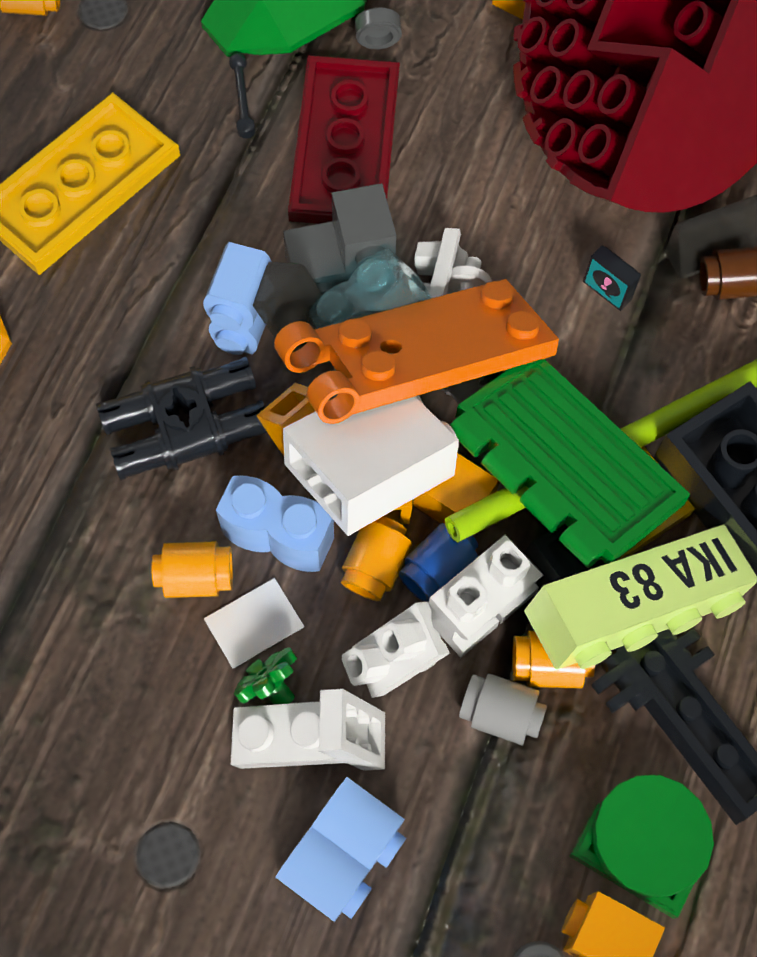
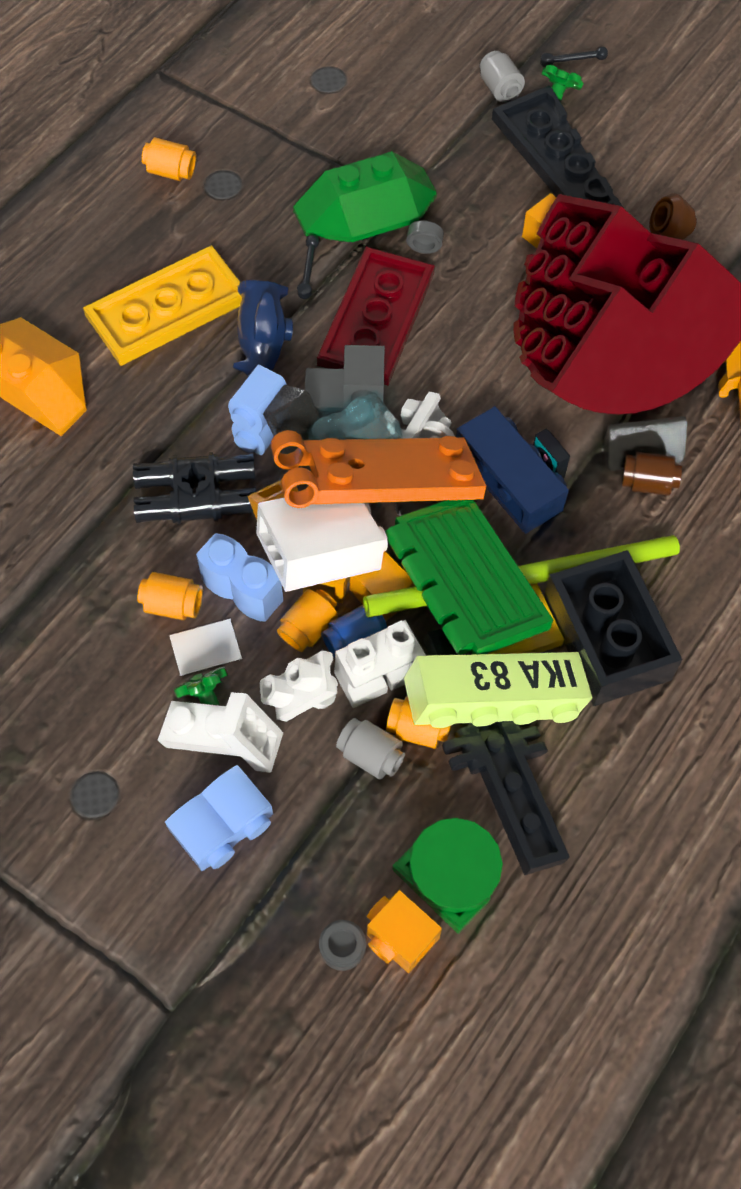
camera: 15 degrees right, 5 degrees down
(210, 187) = (261, 324): none -> dark blue animal
(576, 304) = (514, 470): none -> dark blue brick

